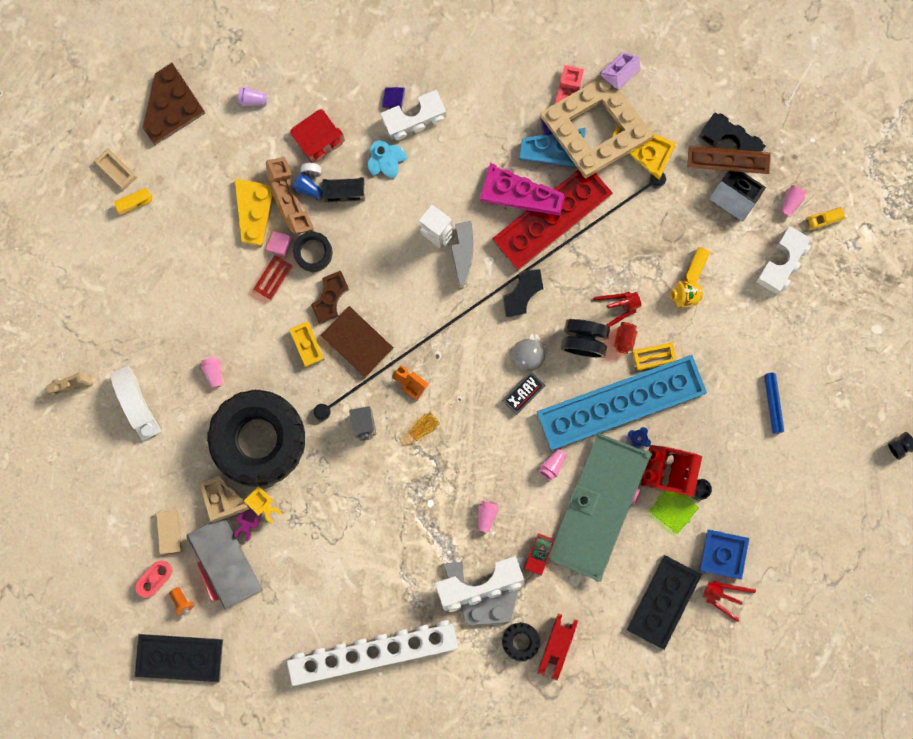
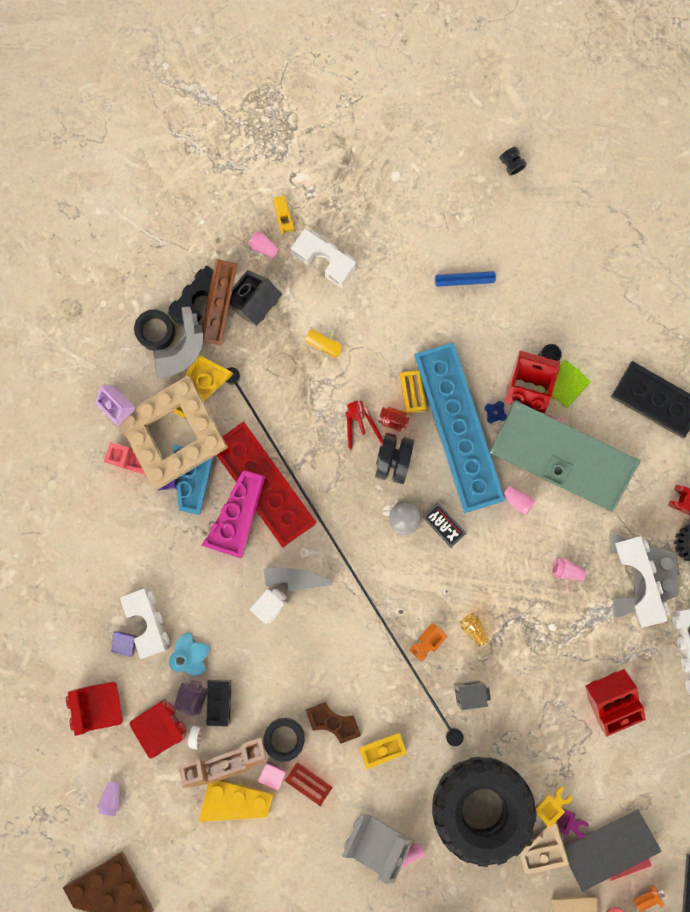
camera: 90 degrees left, 0 degrees up
(219, 342) = (377, 847): none -> light grey panel
(307, 187) = (213, 742): blue cone -> none
(333, 76) = (94, 707): none -> red bracket
(347, 162) = (190, 697): none -> clear purple brick
(354, 575) = (619, 715): none -> red piece
(357, 341) = (382, 696): reddish brown tile -> none
(528, 284) = (348, 525): black tile -> none
(539, 554) = (610, 520): leg -> none
(671, 127) = (182, 355): none -> light grey arch
(686, 293) = (352, 354): yellow head -> none
(701, 87) = (145, 317): none -> black tyre
(714, 593) = (650, 351): red plant -> none
(724, 554) = (613, 337): blue plate -> none

